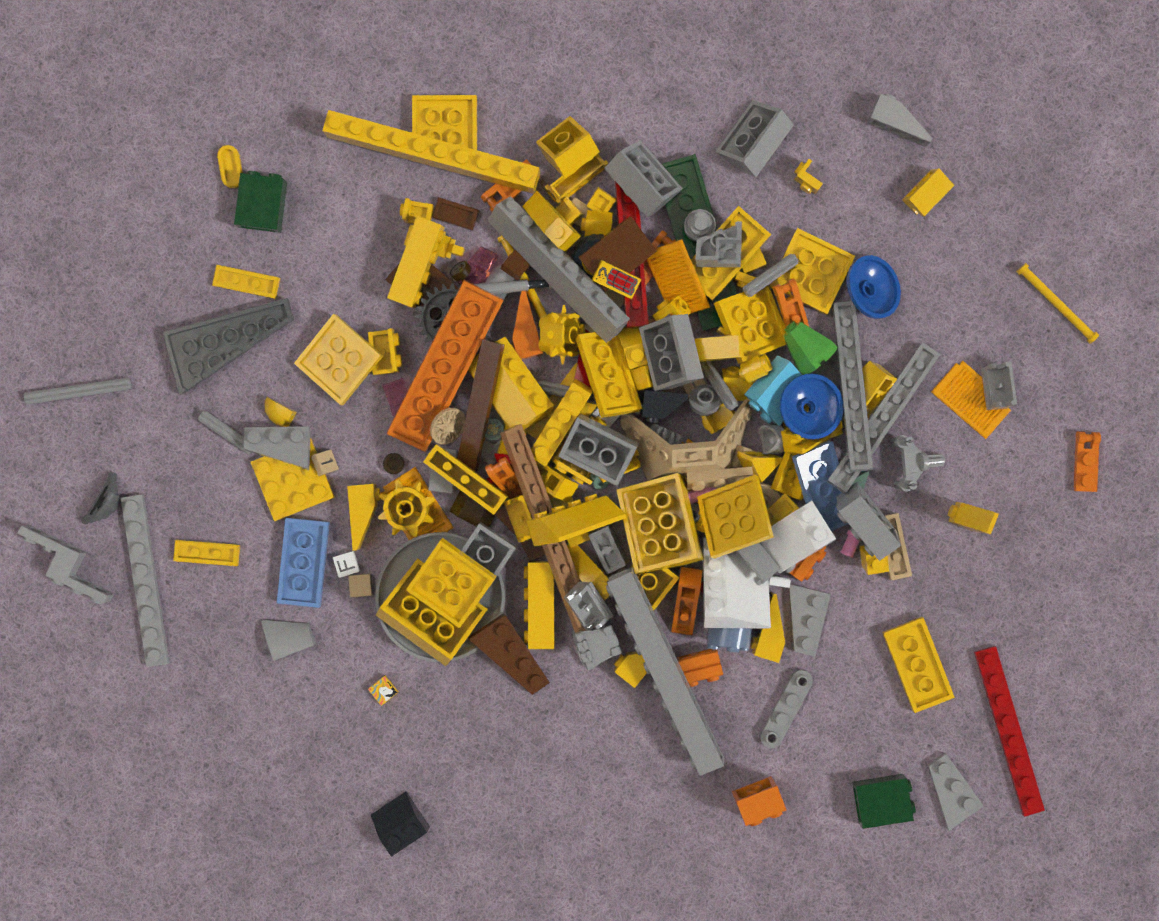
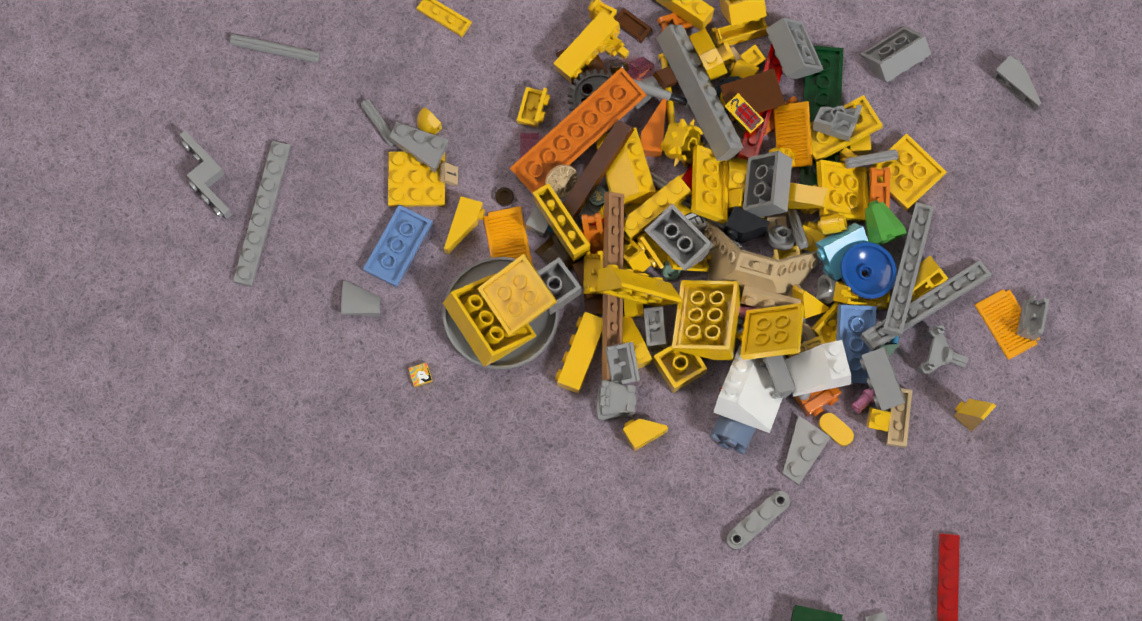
camera: 20 degrees right, 15 degrees down
(105, 503) = (258, 140): dark grey piece -> none
(206, 552) = (322, 210): yellow tile -> none
(211, 344) = (399, 51): dark grey wing -> none
(338, 359) = (494, 98): yellow plate -> none
(346, 564) = (432, 261): white tile -> none
(360, 585) = (437, 282): tan tile -> none
(394, 512) = (505, 222): yellow brick -> none
(399, 823) = (388, 490): black slope -> none
(506, 649) = (540, 378): reddish brown wing -> none
(665, 670) = (667, 441): light grey brick -> none
(687, 601) = (705, 395): orange slope -> none
(699, 224) = (826, 98): light grey plate -> none
(701, 666) = (695, 454): orange brick -> none
(759, 801) = (706, 585): orange brick -> none
(771, 641) = (767, 451): yellow slope -> none
(779, 581) = (789, 407): white tile -> none
(807, 181) = (927, 102): yellow bracket -> none
(833, 583) = (836, 429): none -> yellow tile
(873, 287) = (953, 200): blue dish -> none
(918, 664) = (886, 525): yellow plate -> none
(928, 192) = (1024, 145): yellow hinge -> none
(1052, 298) = (1105, 272): yellow bar -> none
(1086, 462) = (1088, 410): orange plate -> none

